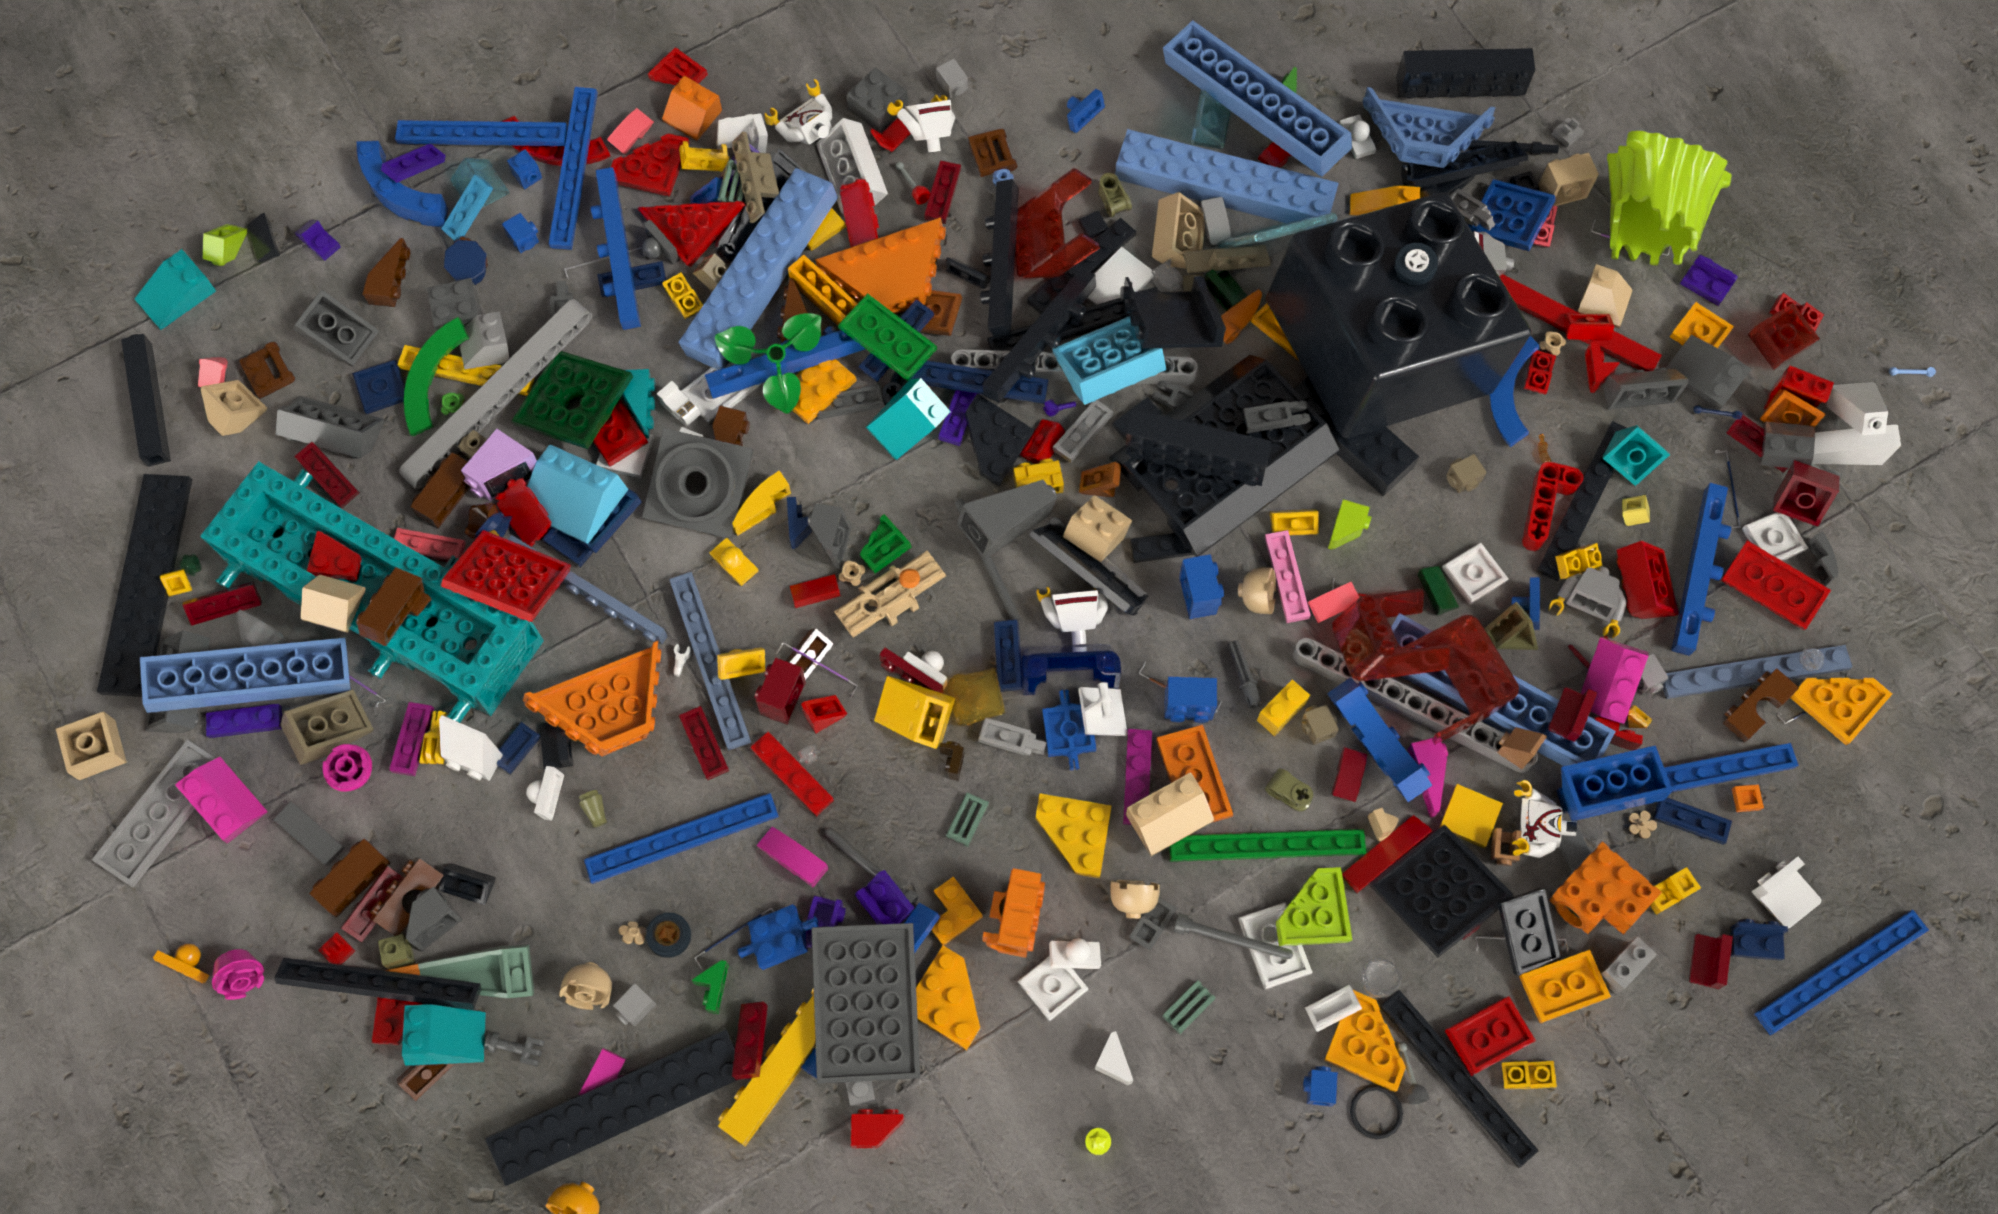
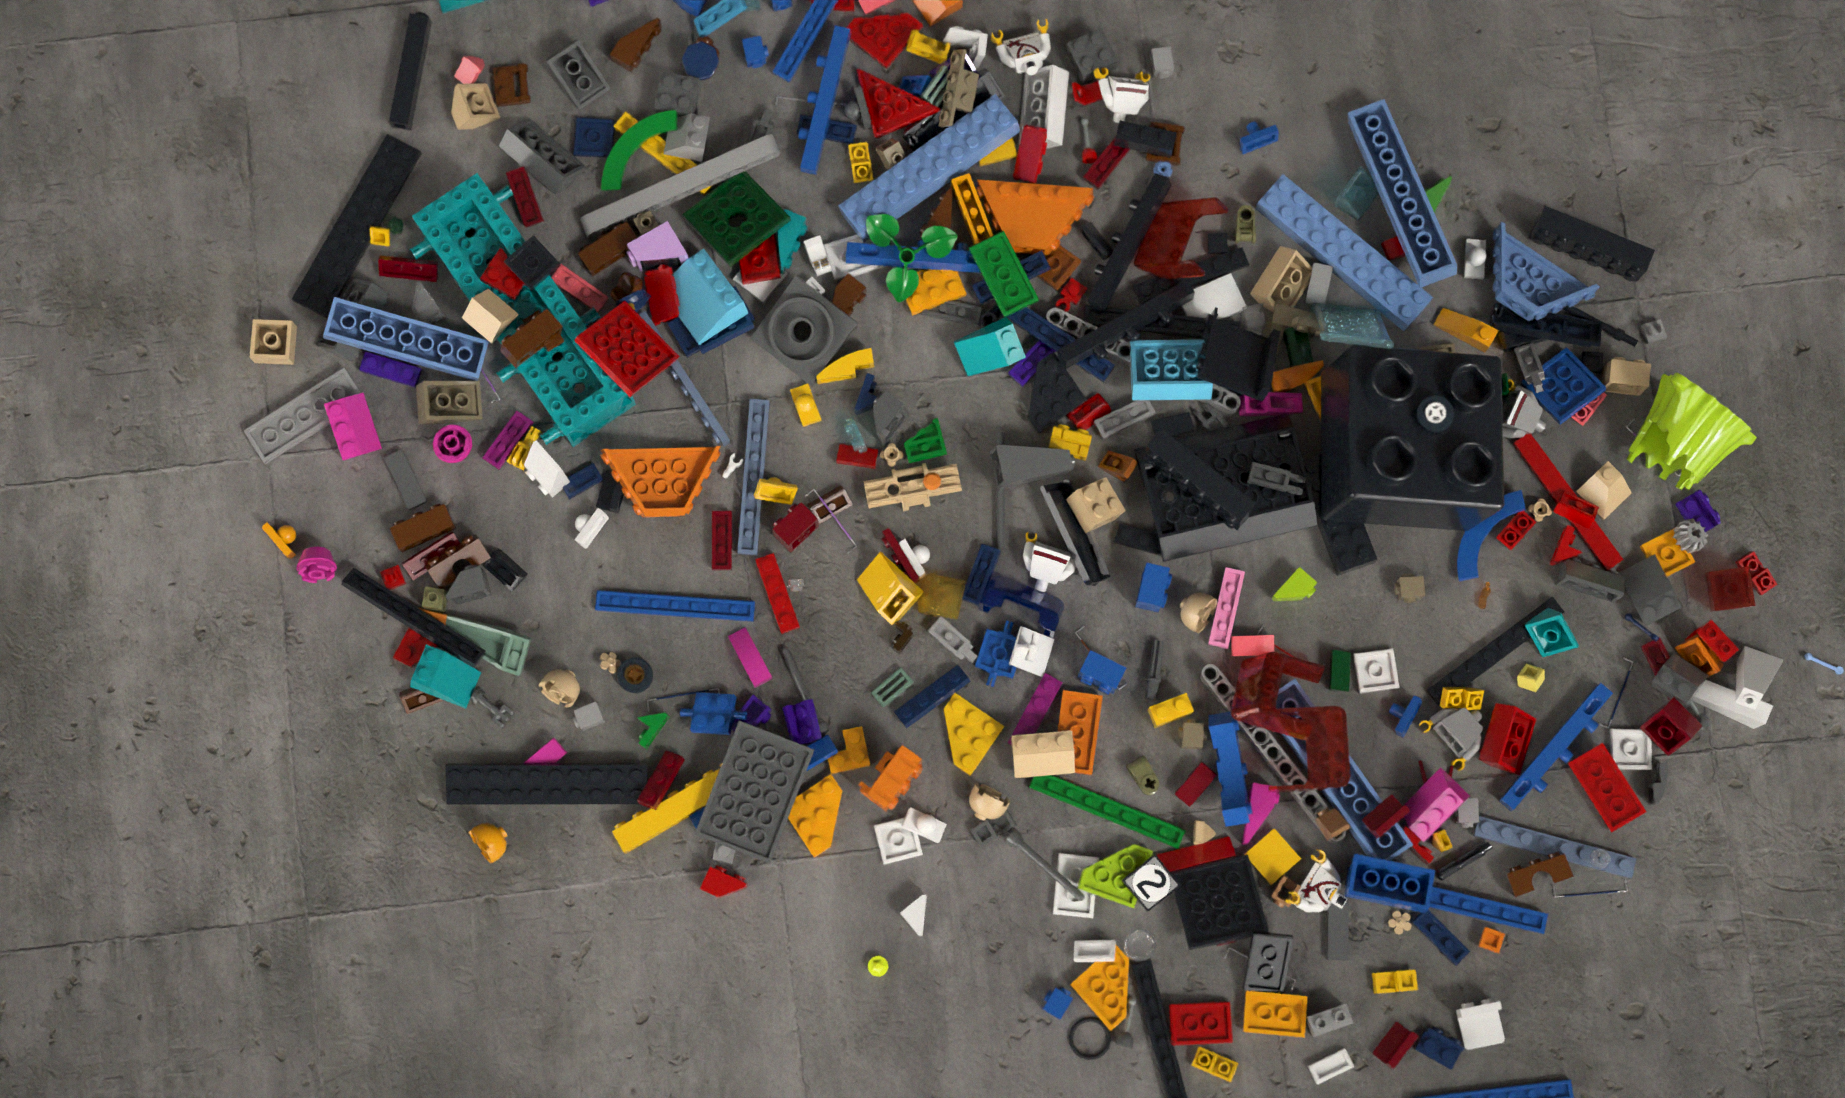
camera: 25 degrees right, 10 degrees up
(359, 527) = (532, 263): none -> black tile
(450, 398) = (643, 172): bright green plate -> none
(593, 807) = (619, 554): olive cone -> none
(807, 571) = (852, 429): none -> clear light blue plate
(823, 712) = (822, 556): red slope -> none
(967, 333) = (1072, 294): none -> red plate
(971, 151) = (1145, 139): none -> black brick
(1016, 809) = (932, 696): none -> dark blue plate
(1052, 409) = (1108, 387): dark purple hand -> none
(1203, 992) = (1006, 895): sand green tile -> none
(1221, 359) = (1272, 405): none -> dark pink slope
(1295, 521) = (1255, 565): yellow slope -> none
(1357, 902) = (1150, 882): none -> slope
(1512, 630) = (1378, 729): olive slope -> none
(1545, 507) = (1459, 643): red beam -> none
(1604, 889) = (1339, 957): orange piece -> none
(1654, 1017) = (1330, 1066): none -> white tile
(1673, 726) = (1462, 861): none -> black piece
(1716, 301) = (1690, 535): none -> light grey gear
(1841, 703) = (1606, 902): light orange plate -> none

